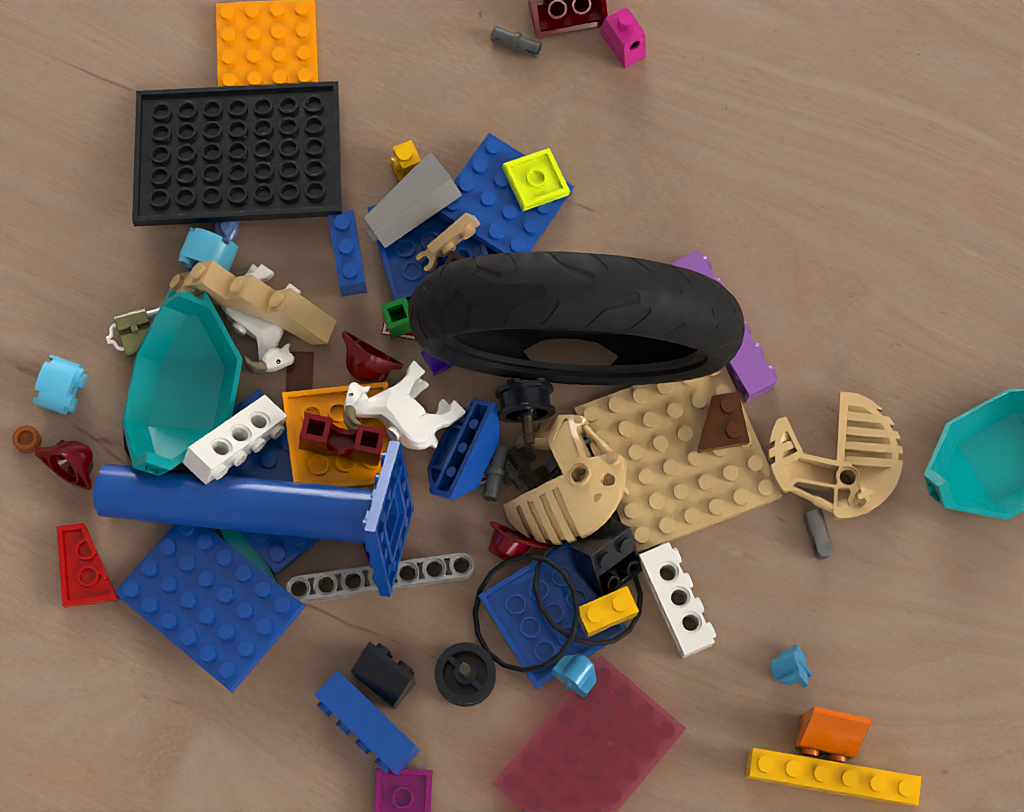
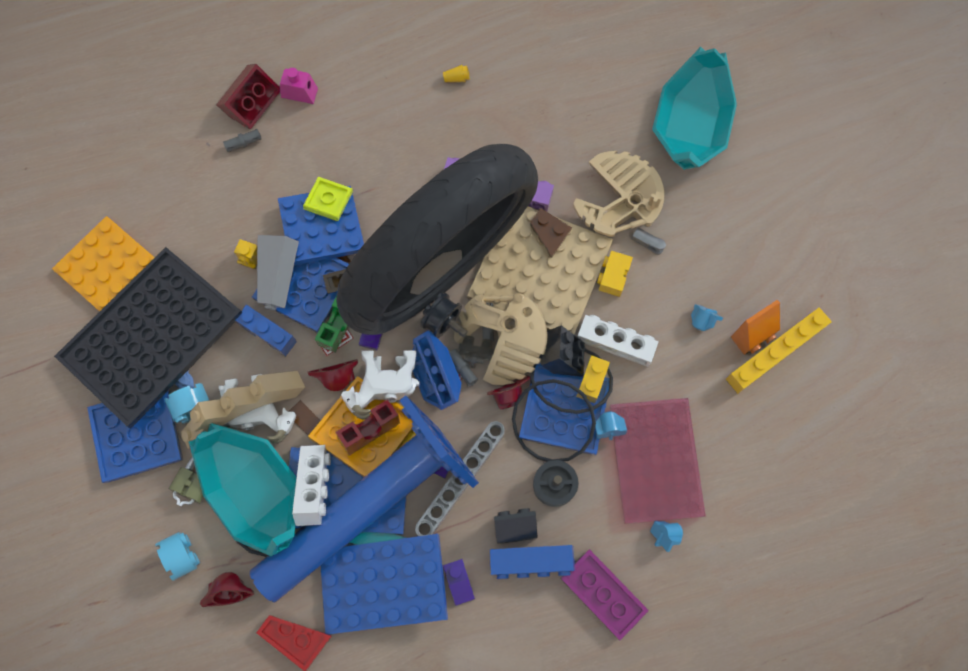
camera: 45 degrees left, 0 degrees up
(26, 439) = (187, 603): dark orange tile -> none
(128, 255) = (131, 451): none -> blue plate
(280, 672) = (458, 582): none -> dark purple slope
(446, 241) = (315, 274): tan plate -> none
(739, 533) = (613, 278): none -> yellow brick
(802, 173) = (457, 74): none -> yellow cone

